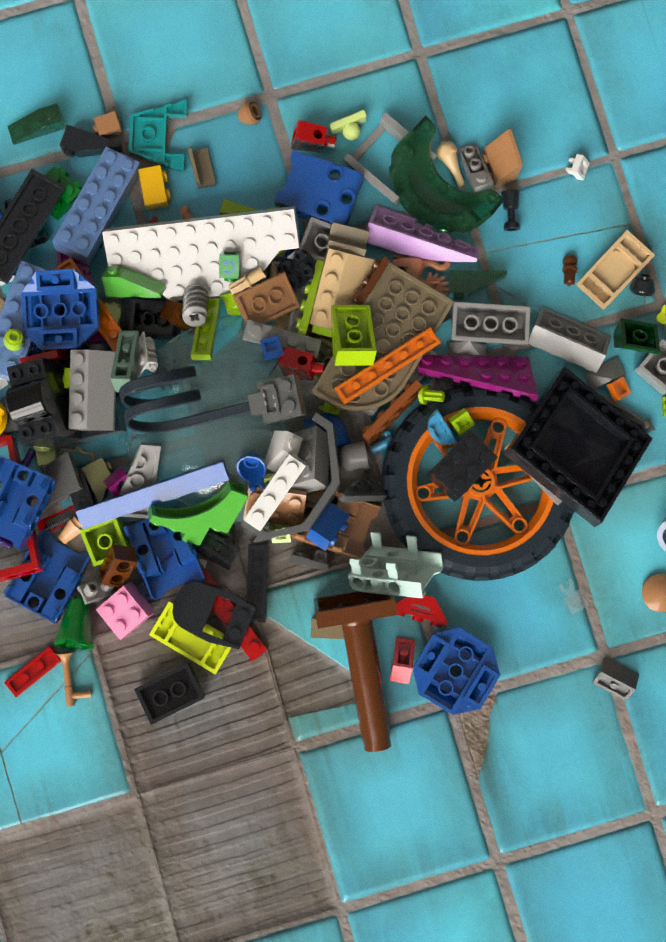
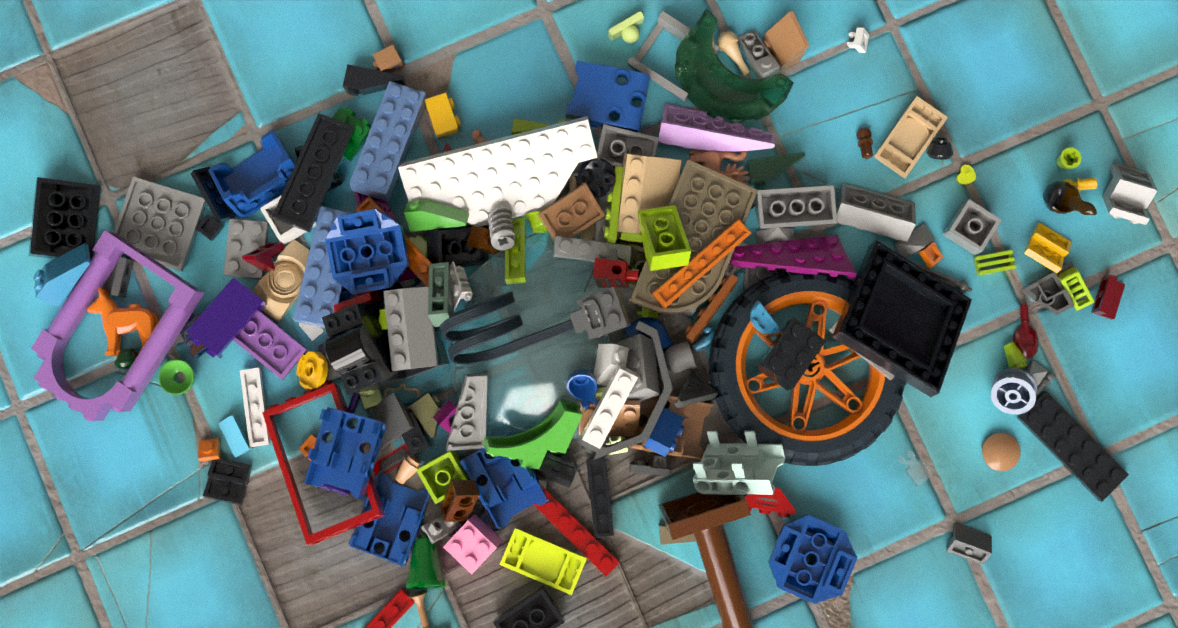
camera: 10 degrees left, 0 degrees up
(14, 339) = (324, 287): lime hat -> none
(37, 124) = (317, 68): clear green slope -> none
(149, 135) = (430, 63): teal wing -> none
(152, 494) = (485, 425): tile -> none
(195, 604) = (541, 531): black slope -> none
(202, 168) = (487, 90): dark tan panel -> none
(229, 265) = (531, 184): brick -> none
(247, 280) = (549, 197): tan axle -> none
(249, 113) = (527, 29): medium nougat cone -> none
(271, 347) = (584, 260): blue tile -> none
(311, 137) = (591, 45): red torso -> none
(347, 239) = (643, 142): dark tan panel -> none
(370, 281) = (672, 182): reddish brown hinge -> none
(402, 660) = (756, 555): coral slope -> none
(426, 394) = (744, 287): lime piece -> none
(461, 421) = (783, 309): lime plate -> none
(510, 204) = (799, 86): black piece -> none
(637, 336) = (942, 200): dark green slope -> none

